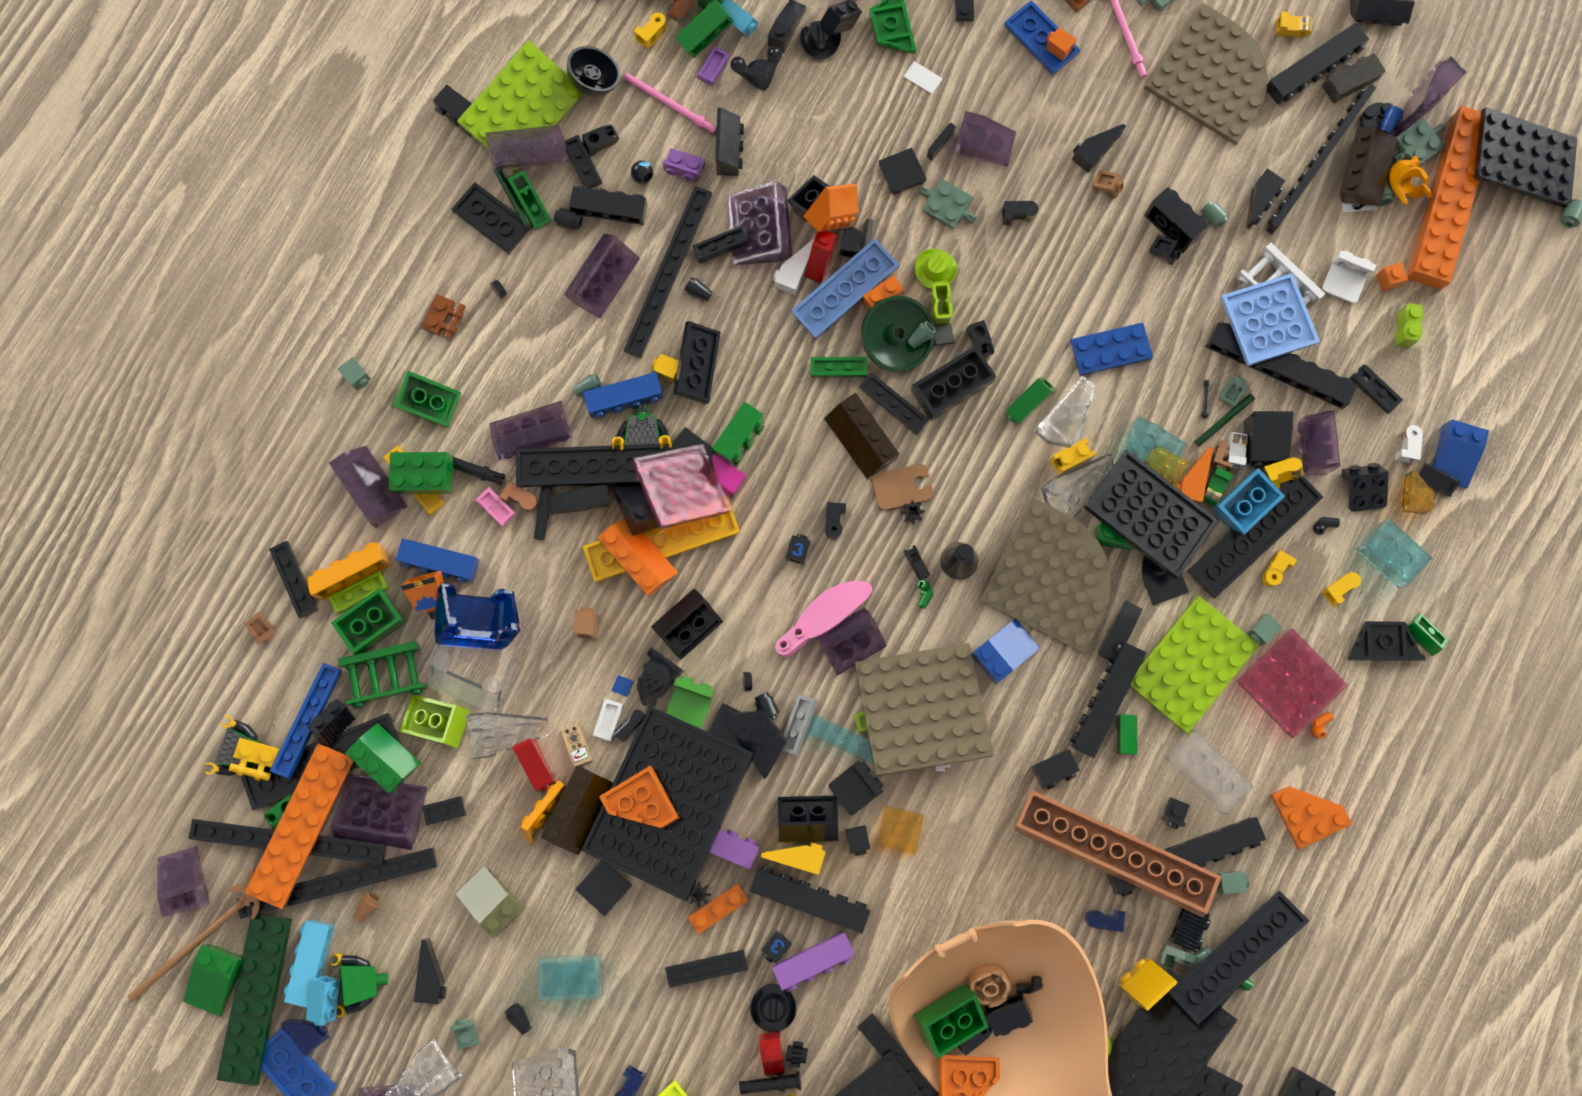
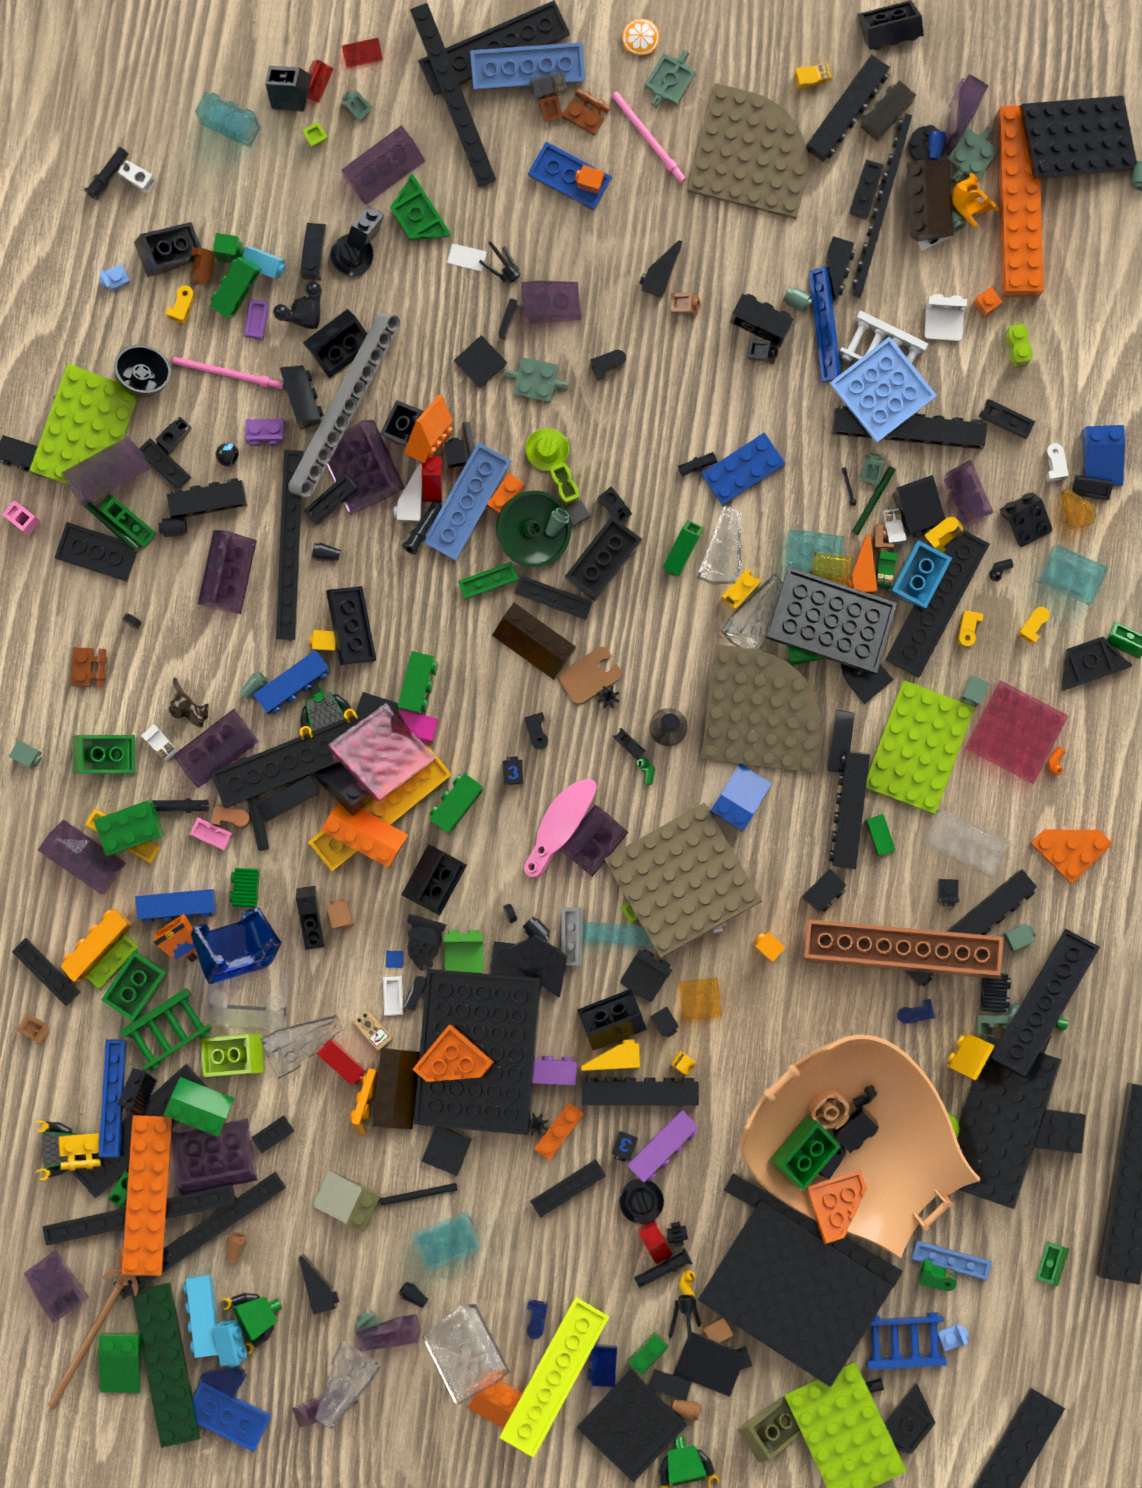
camera: 20 degrees left, 5 degrees up
(435, 163) = (21, 518): none -> bright pink brick
(480, 406) = (159, 742): none -> white leg
(481, 1049) = (392, 1333): none -> clear purple slope
(508, 567) = (245, 887): none -> green brick
(515, 381) = (184, 707): none -> dark brown animal
(557, 617) = (310, 917): none -> black slope
(561, 920) = (418, 1194): none -> black bar
(734, 558) = (455, 803): none -> green brick
(779, 110) = (336, 343): none -> black slope
(789, 301) = (417, 534): none -> black pin
(812, 121) = (344, 404): none -> light grey beam
(862, 886) = (683, 1063): none -> yellow leg
(958, 101) = (510, 271): none -> black plant
(984, 802) = (768, 946): none -> light orange brick
(1070, 329) = (697, 464): none -> black pin
(1232, 244) = (825, 324): none -> blue plate
(1310, 139) = (866, 189): none -> black plate

